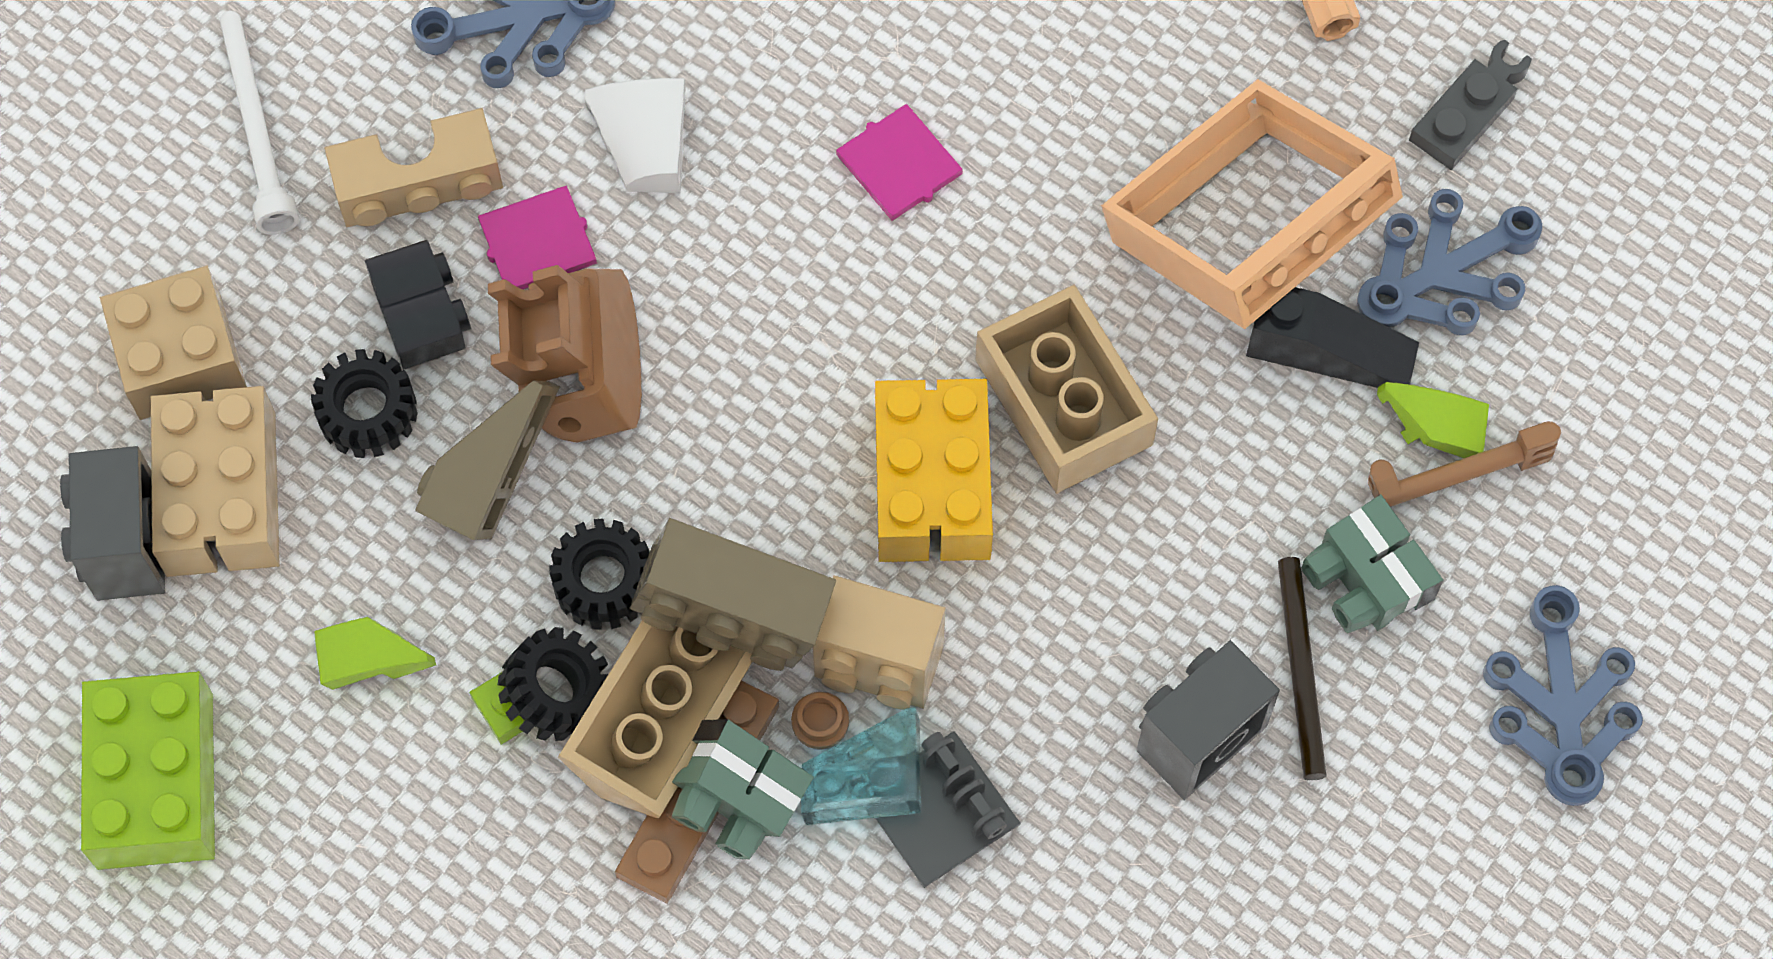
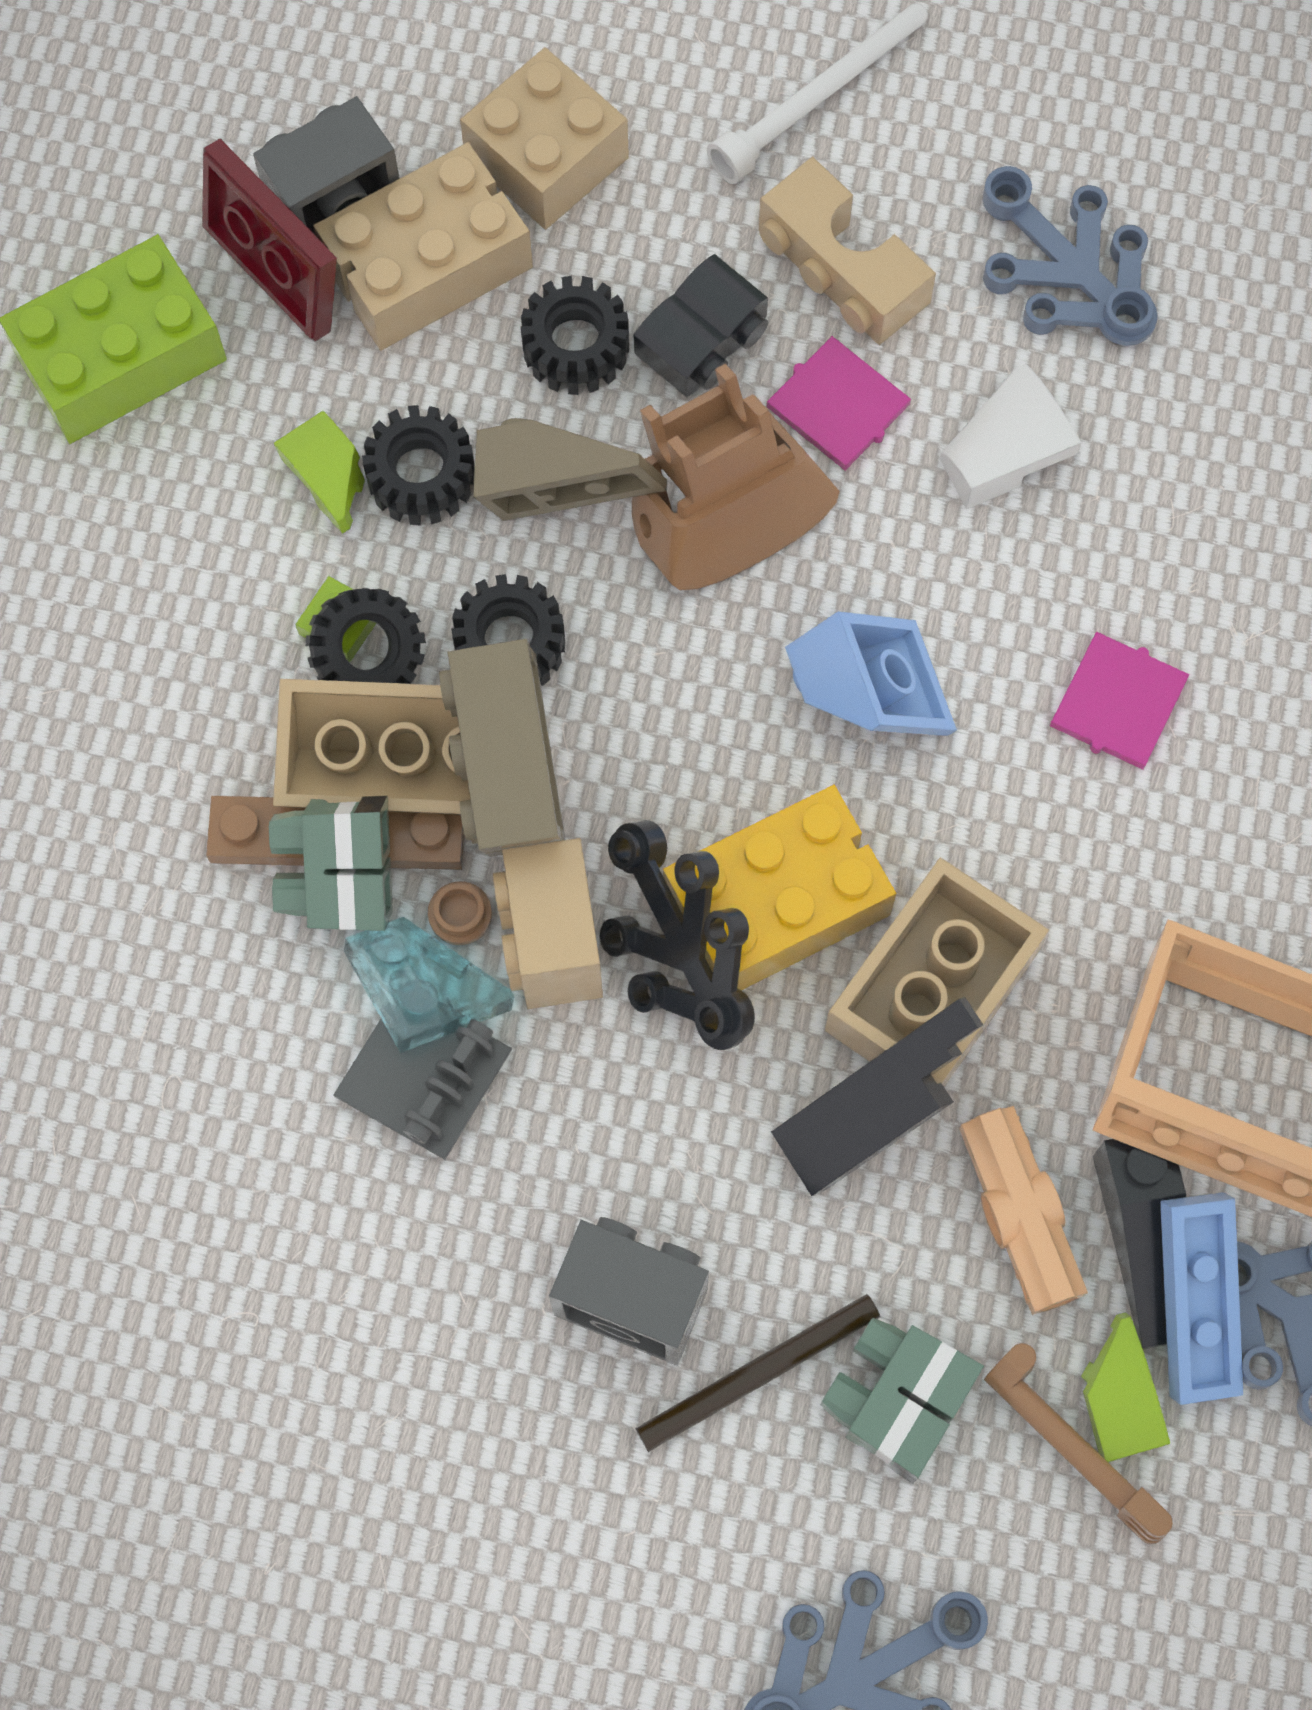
camera: 65 degrees right, 5 degrees up
(140, 597) = (268, 240): none -> dark red tile
(404, 545) = (411, 434): none -> black tyre
(790, 322) = (871, 674): none -> light blue slope
(946, 550) = (716, 1004): none -> black plant
(1146, 470) = (876, 1102): none -> black piece
(1269, 418) = (1023, 1210): none -> light nougat piece
(1398, 323) = (1202, 1298): none -> light blue plate

